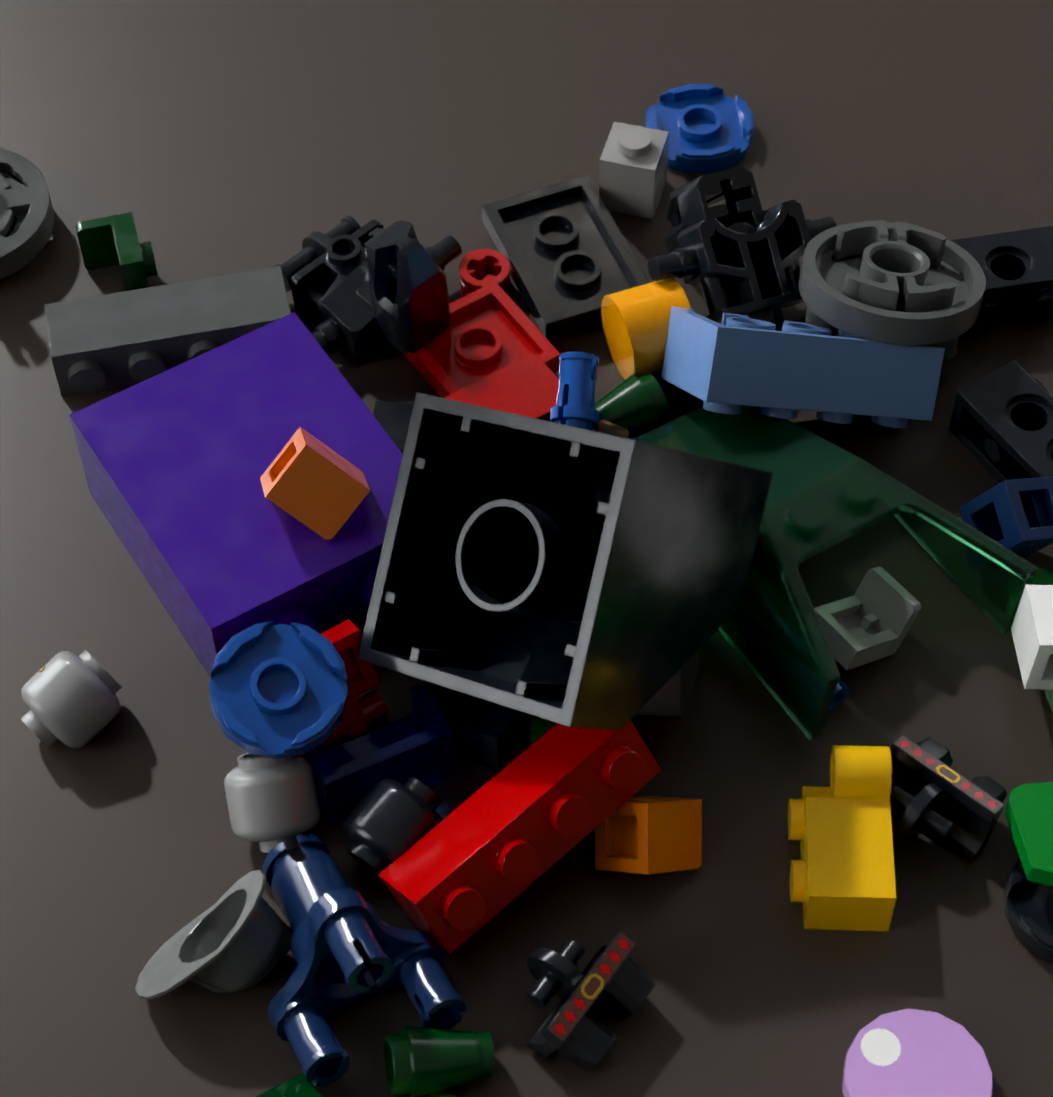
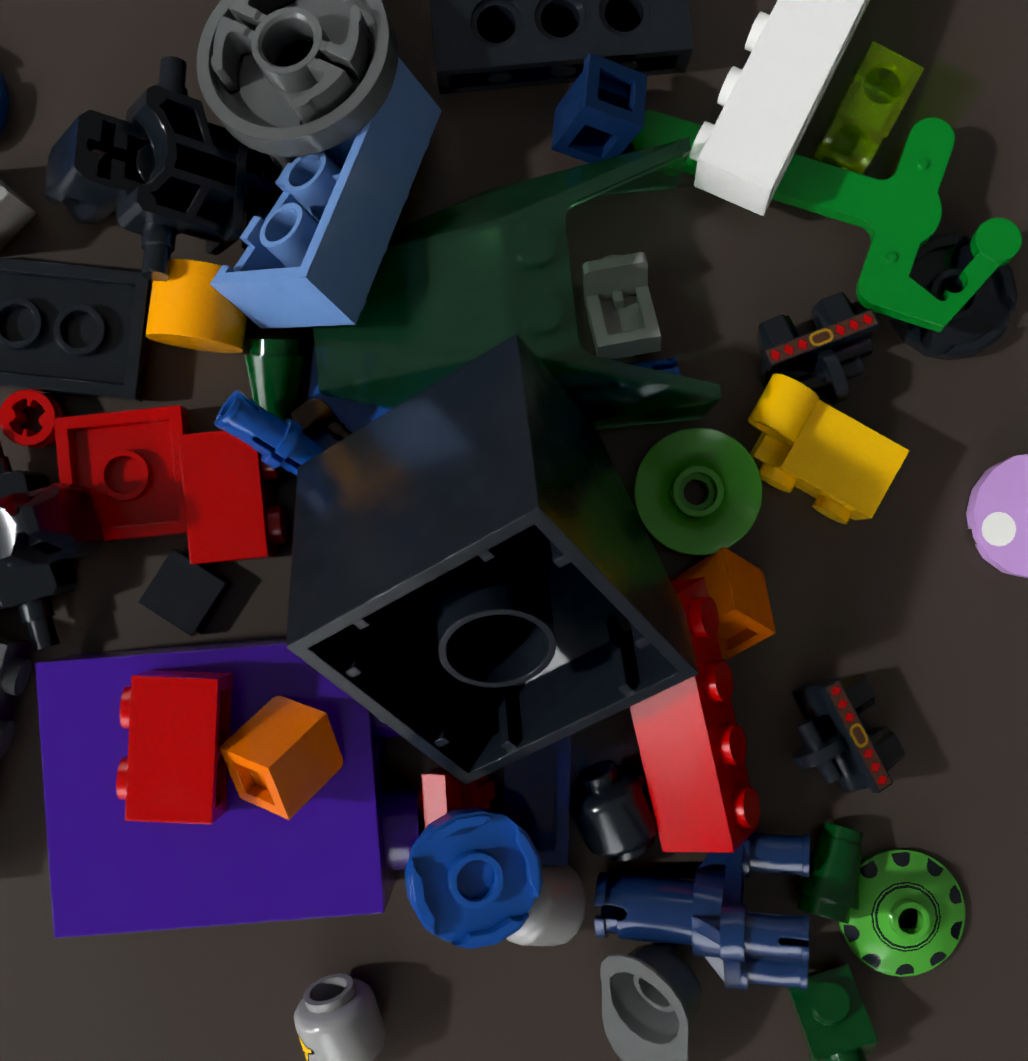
camera: 60 degrees left, 35 degrees up
(266, 405) = (174, 746): none -> red brick
(743, 736) = (730, 486): none -> bright green dish

